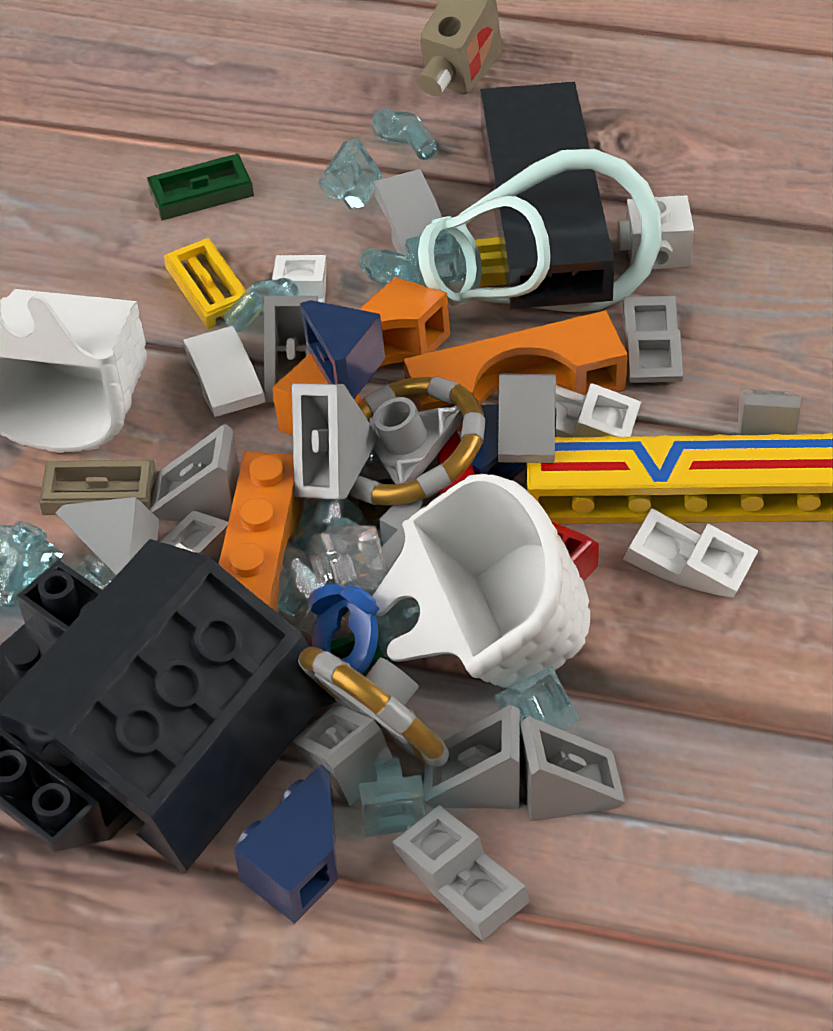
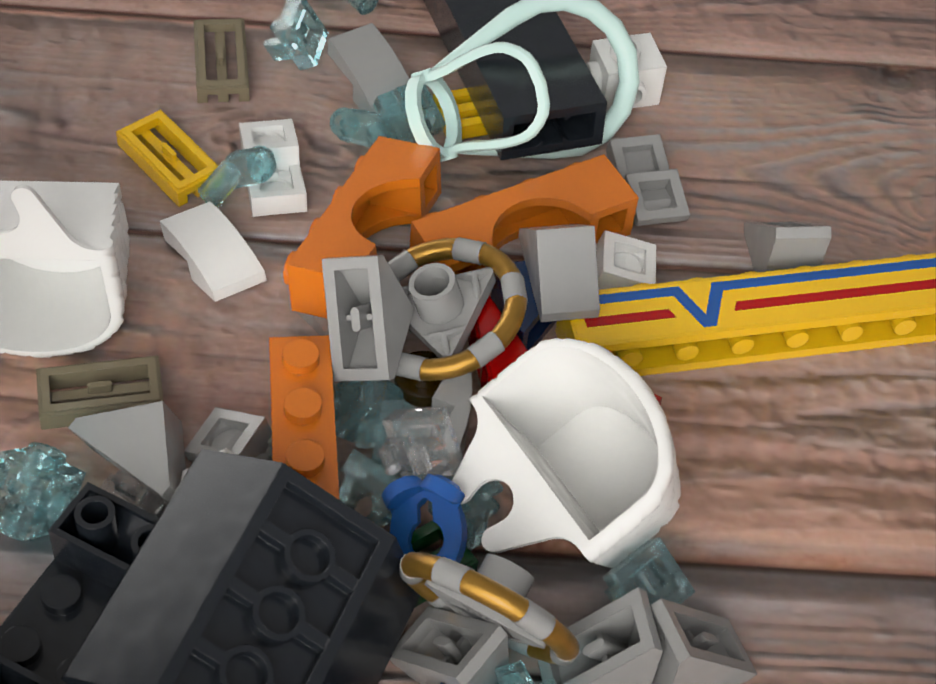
camera: 20 degrees left, 0 degrees up
(199, 479) = (216, 373): light grey slope -> none
(200, 186) = (136, 56): dark green tile -> none
(273, 219) = (223, 85): none -> dark tan tile
(283, 338) = (281, 212): light grey slope -> none
(343, 343) = (354, 208): dark blue slope -> none
(680, 555) = (758, 404): white slope -> none

